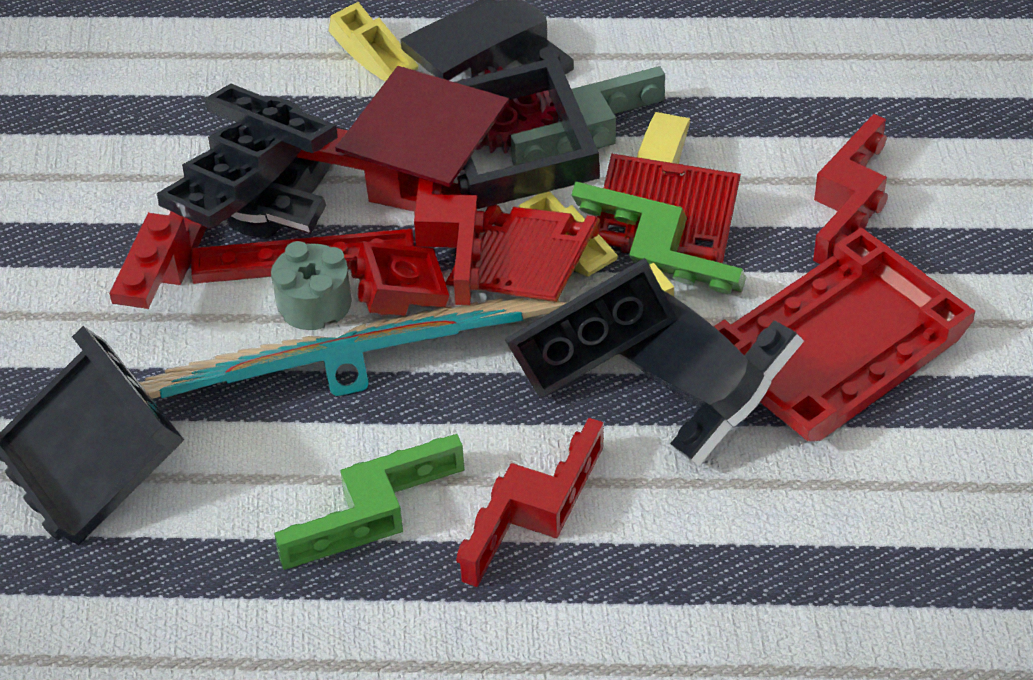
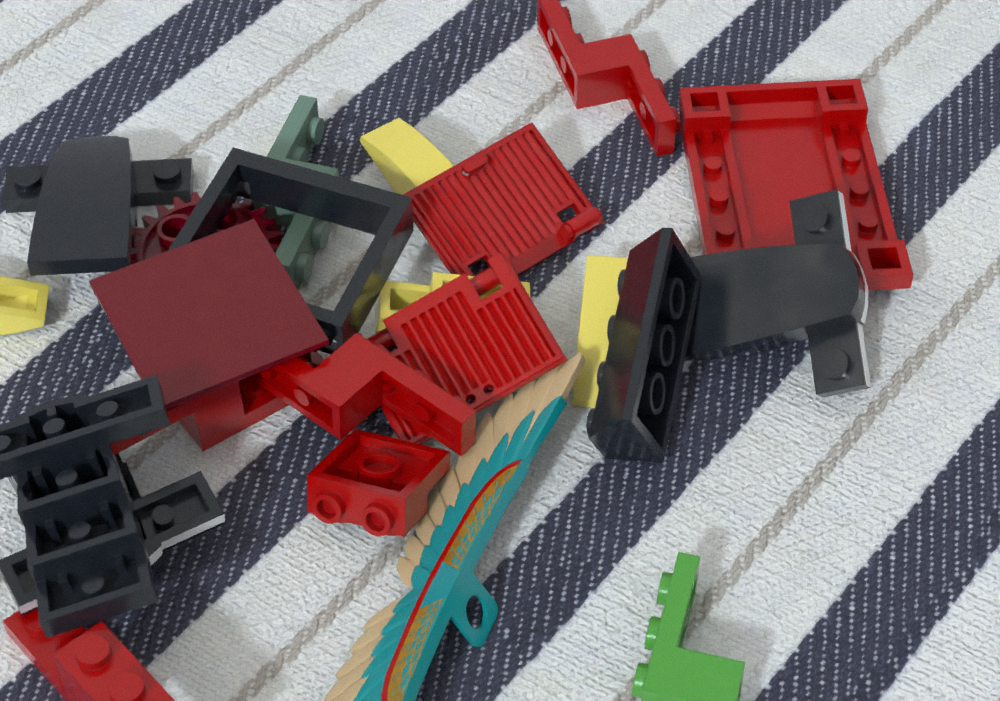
camera: 55 degrees left, 0 degrees up
(257, 258) = (226, 562): red tile -> none
(311, 285) = (308, 567): sand green brick -> none
(530, 501) = (809, 548): red bracket -> none
(658, 237) = (538, 237): bright green bracket -> none

